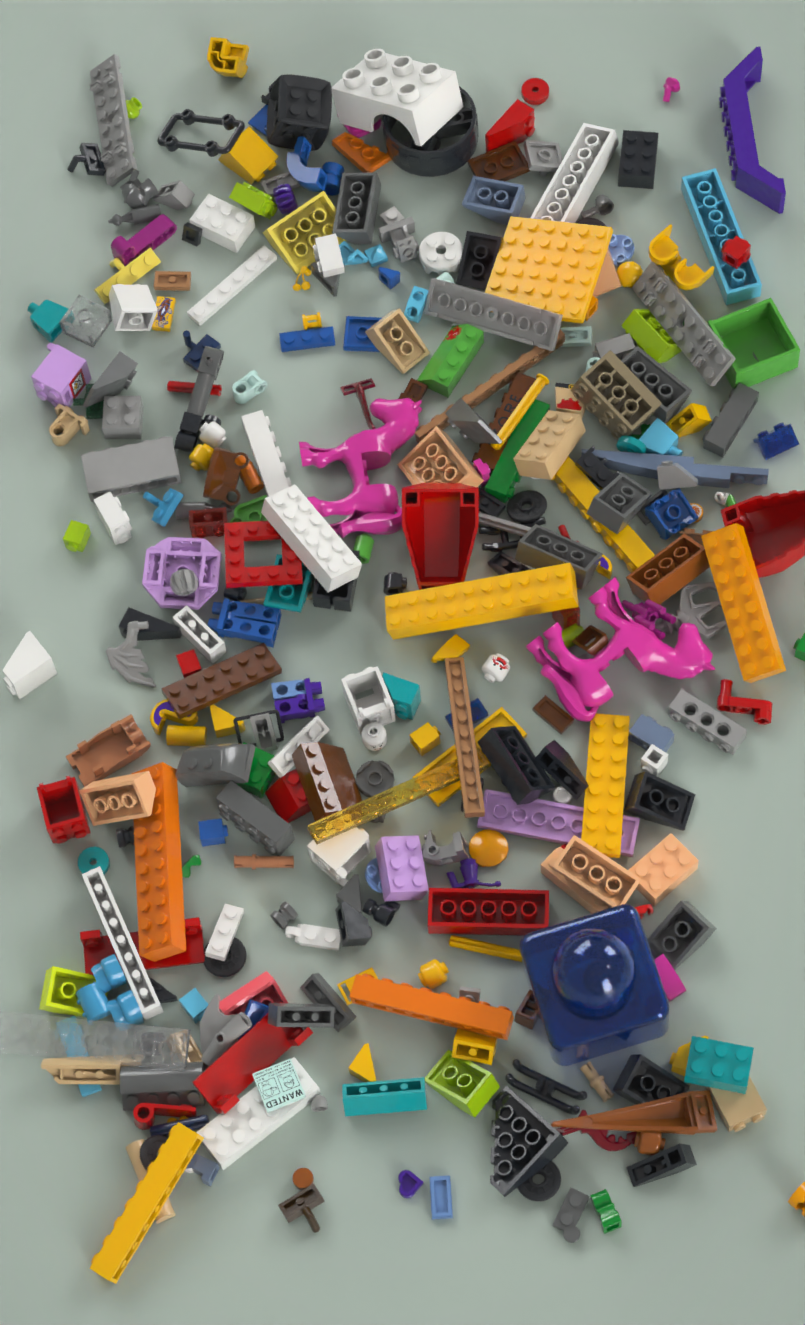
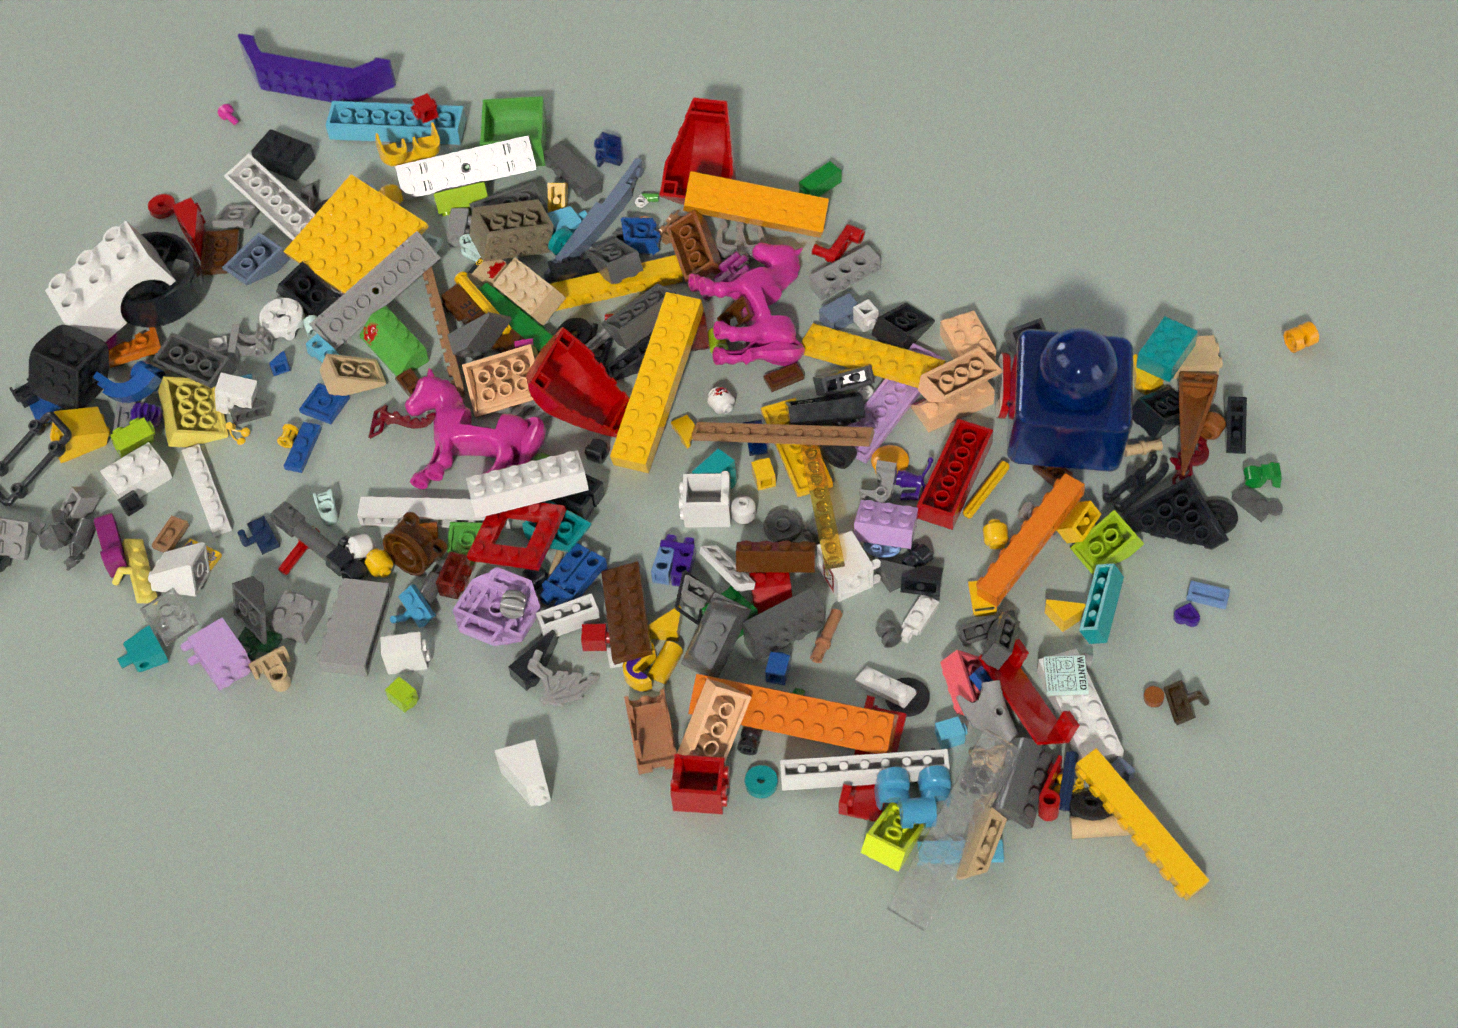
camera: 70 degrees left, 10 degrees down
(376, 255) = (250, 367): medium azure tile -> none
(673, 475) = (609, 217): light grey slope -> none

